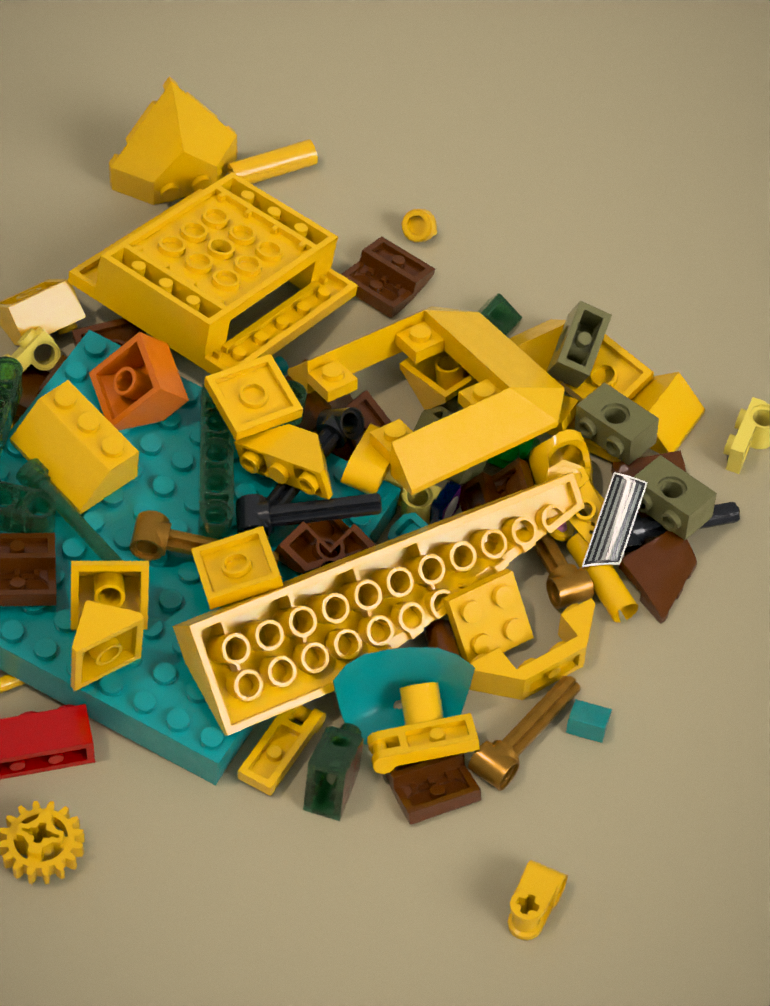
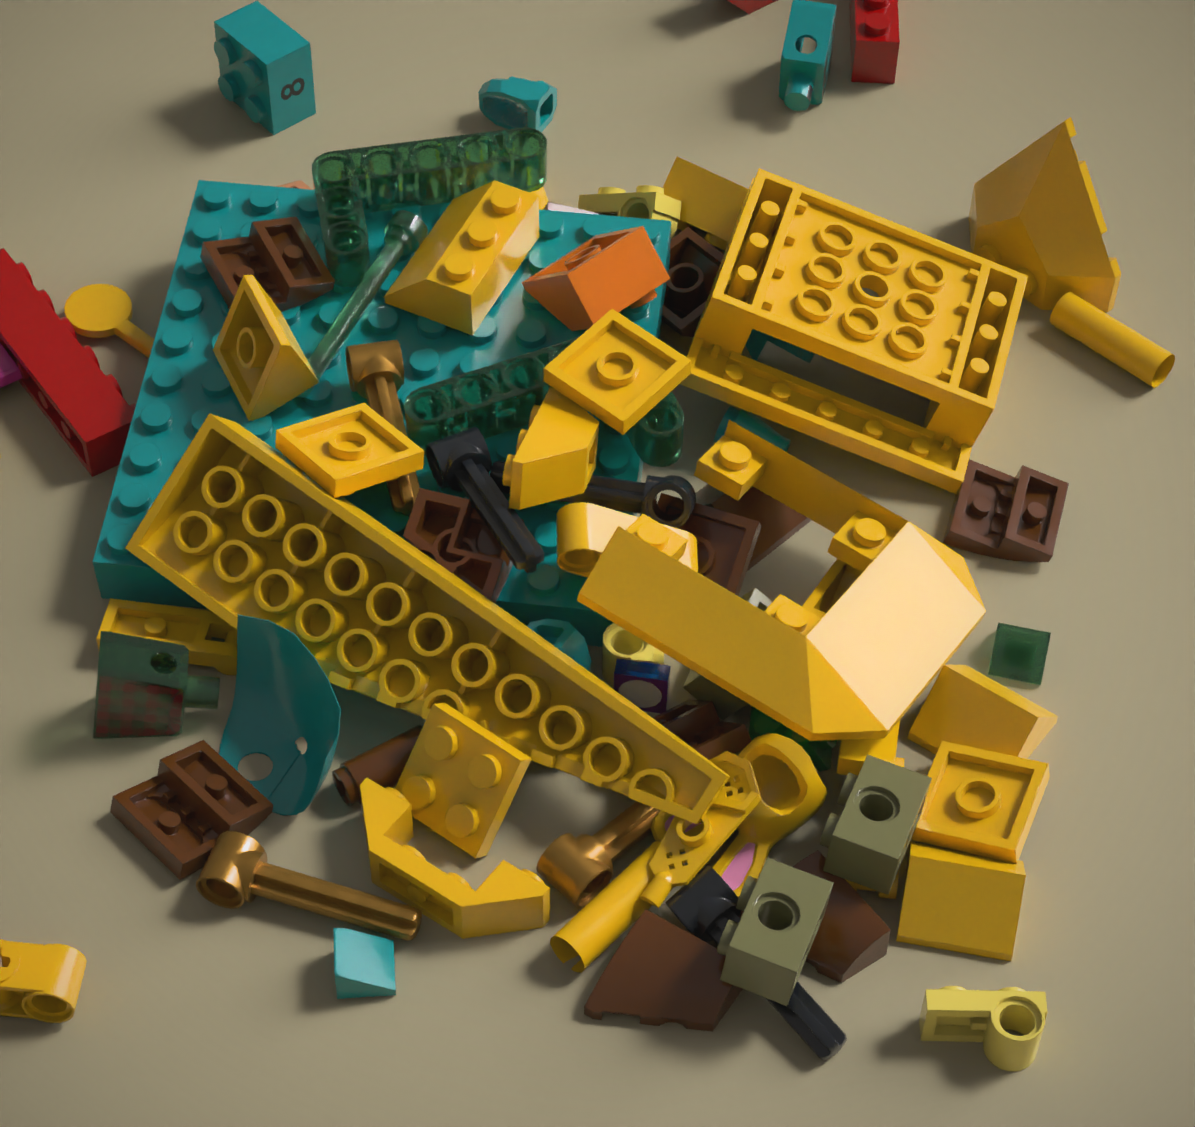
camera: 70 degrees right, 5 degrees down
(104, 642) = (165, 357): yellow slope -> none
(419, 225) = (1116, 517): yellow tile -> none
(421, 703) = (287, 752): yellow brick -> none
(422, 742) = (223, 770): yellow plate -> none
(578, 344) = (983, 727): olive brick -> none
(615, 521) = (692, 870): sticker -> none

